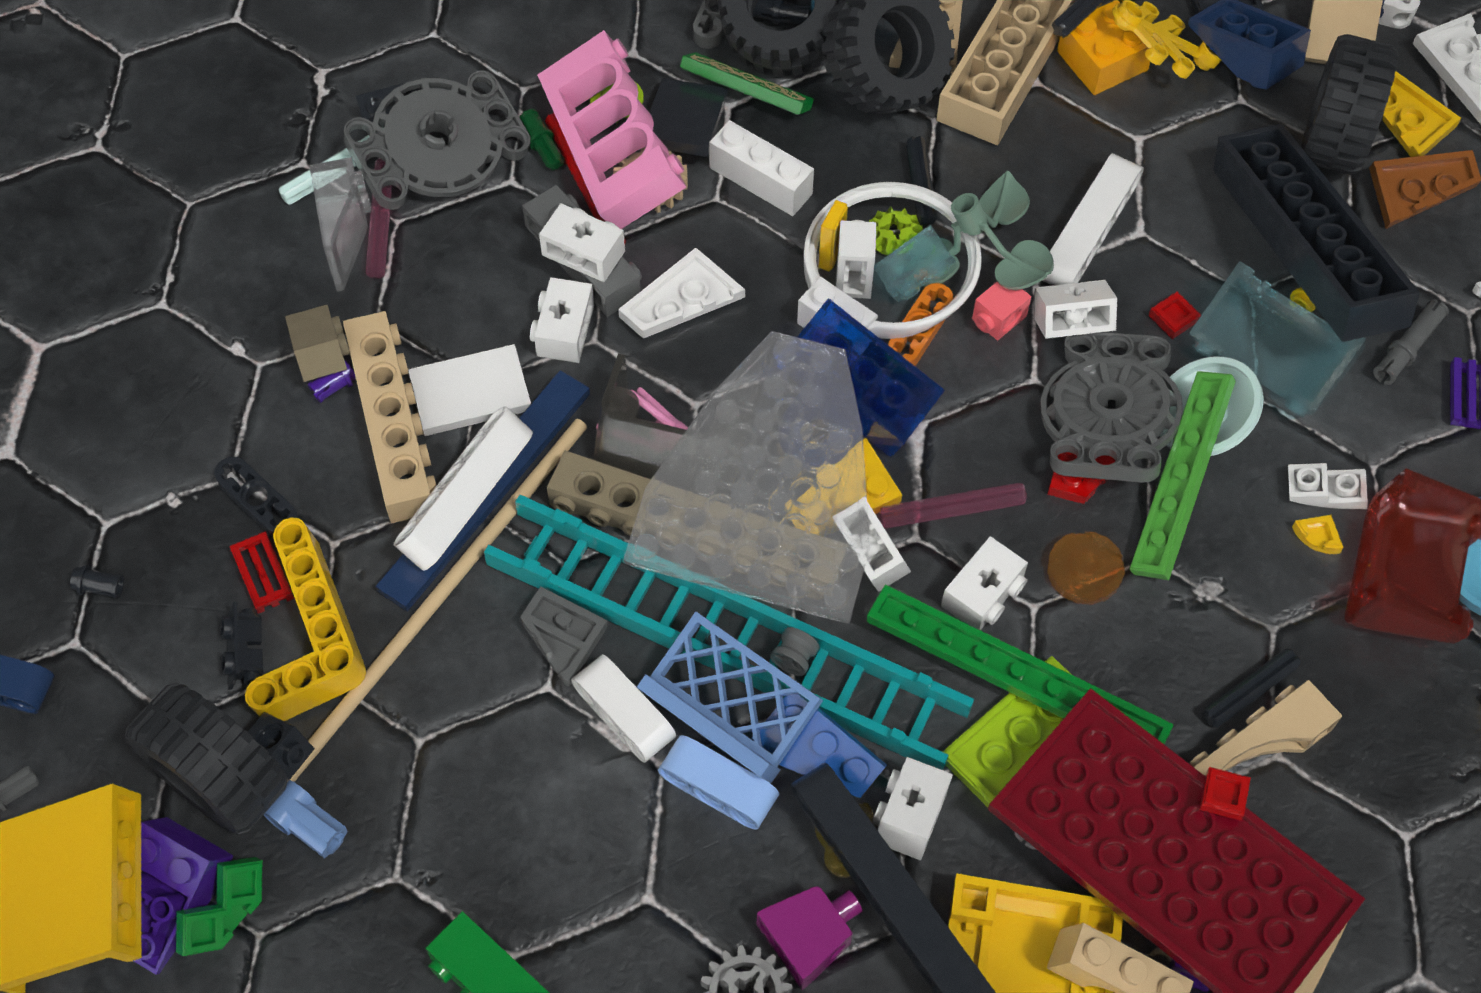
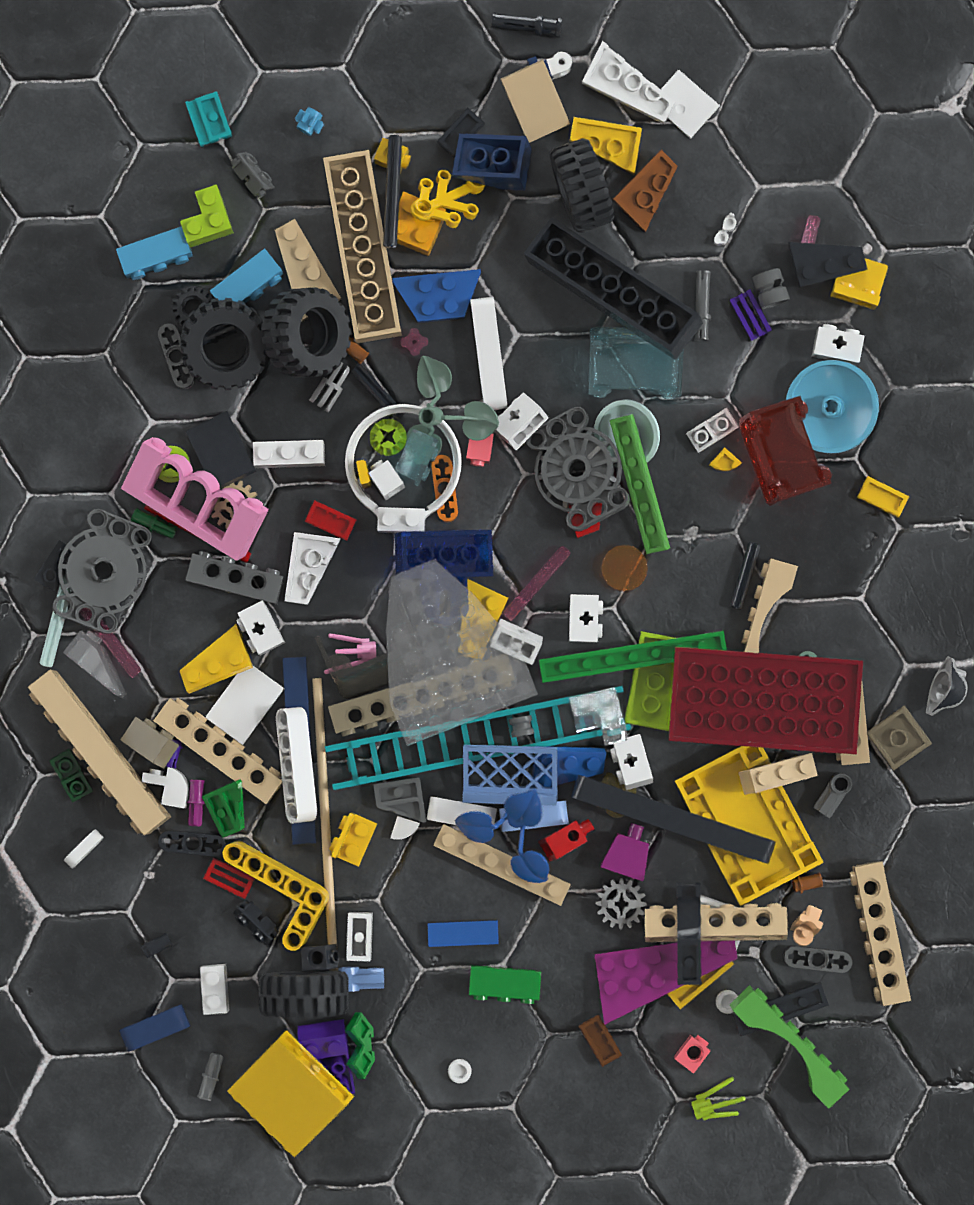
camera: 35 degrees left, 25 degrees up
(110, 685) = (214, 989): none -> white brick
(126, 408) = (84, 848): none -> white beam
(197, 324) = (71, 775): none -> dark green slope
(246, 315) = (99, 752): none -> tan brick
(298, 415) = (175, 786): none -> white brick
(306, 453) = (195, 803): none -> magenta axle
(335, 480) = (226, 808): none -> green wing
(351, 757) = (359, 936): none -> white brick
(453, 628) = (353, 839): none -> yellow bracket
(478, 323) = (217, 662): none -> yellow wing
(492, 868) = (463, 933): none -> blue tile
(532, 673) = (403, 828): none -> white tile
(582, 242) = (253, 588): white brick -> none
(624, 812) = (497, 863): none -> tan arch
(713, 715) = (521, 811): none -> blue plant
(737, 840) = (558, 843): none -> red torso
(746, 83) = (235, 400): green tile -> none
(750, 267) = (330, 520): none -> red plate
(869, 137) = (330, 386): none -> light grey arm
(915, 702) = (602, 711): none -> clear brick
(928, 122) = (357, 351): none -> dark orange pin
(1013, 162) = (414, 348): none -> clear pink plate
(1076, 134) = (438, 295): none -> blue wing
(1174, 315) = (570, 379): red tile -> none
(1225, 793) = (770, 656): red tile -> none

